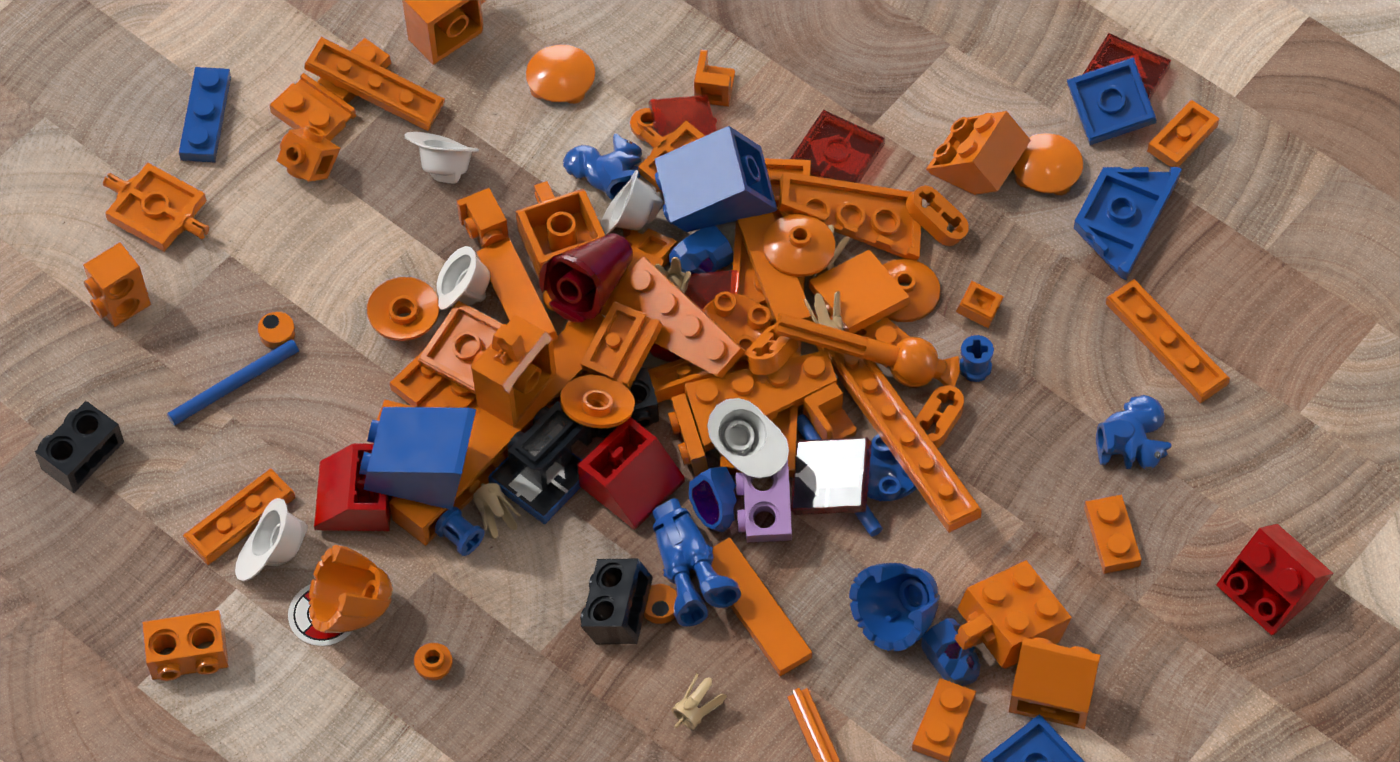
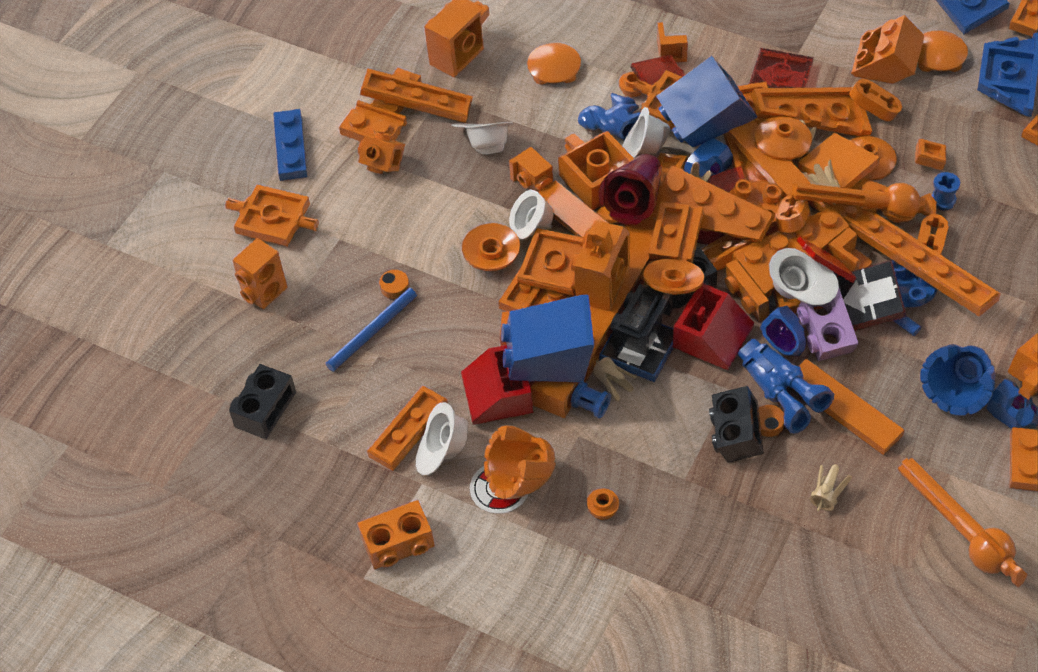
camera: 10 degrees left, 5 degrees down
(787, 420) = (826, 259): none -> red piece

